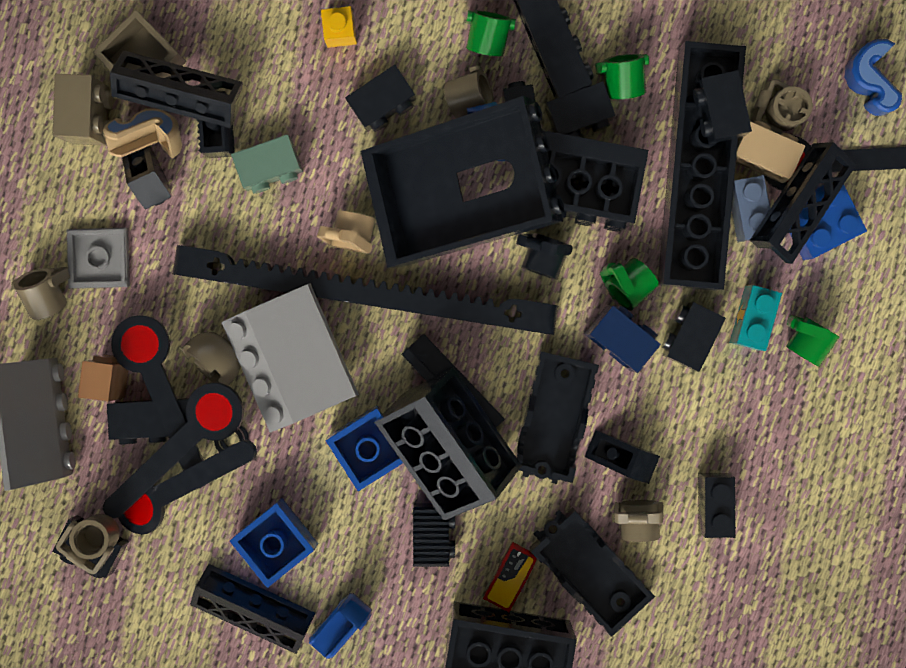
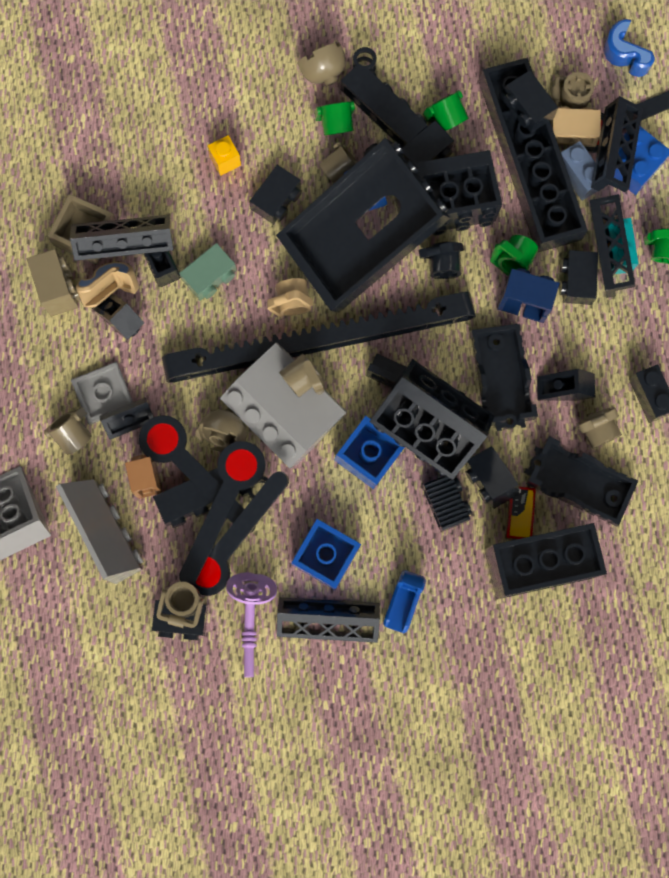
camera: 25 degrees left, 10 degrees down
(113, 300) = (126, 418): none -> black plate
(174, 556) = (250, 598): none -> lavender dish
(318, 341) = (302, 376): none -> dark tan piece
(493, 531) = (492, 478): none -> black brick
(733, 314) = (604, 250): none -> black fence

